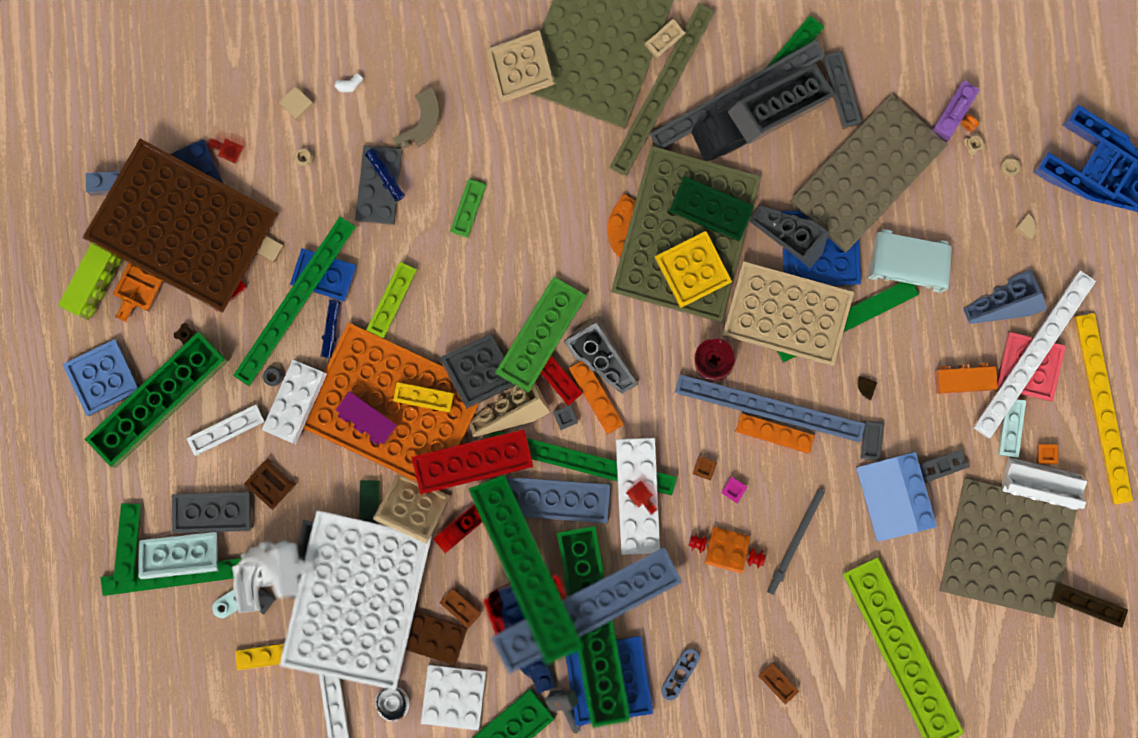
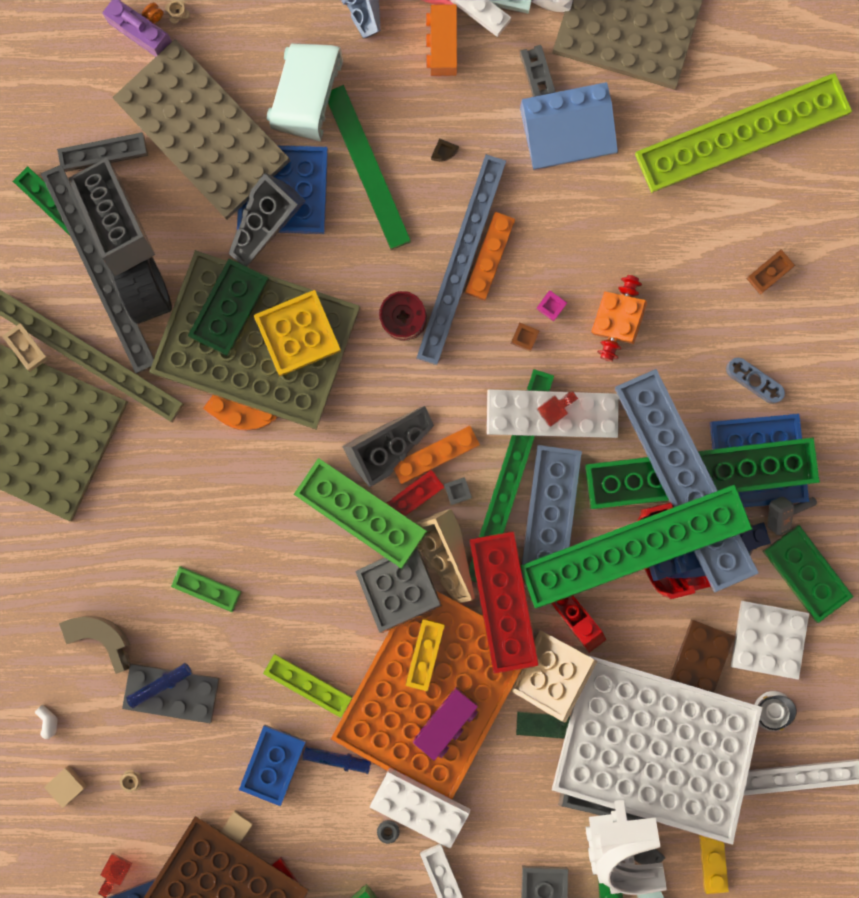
camera: 80 degrees left, 0 degrees up
(265, 489) = (520, 847): reddish brown plate -> none
(294, 301) = (301, 801): green plate -> none
(460, 608) = (669, 625): dark orange plate -> none
(520, 66) = (43, 517): tan plate -> none
(778, 575) = (649, 262): dark grey bar -> none
(788, 313) = (355, 230): tan plate -> none
(872, 441) = (505, 148): dark grey tile -> none

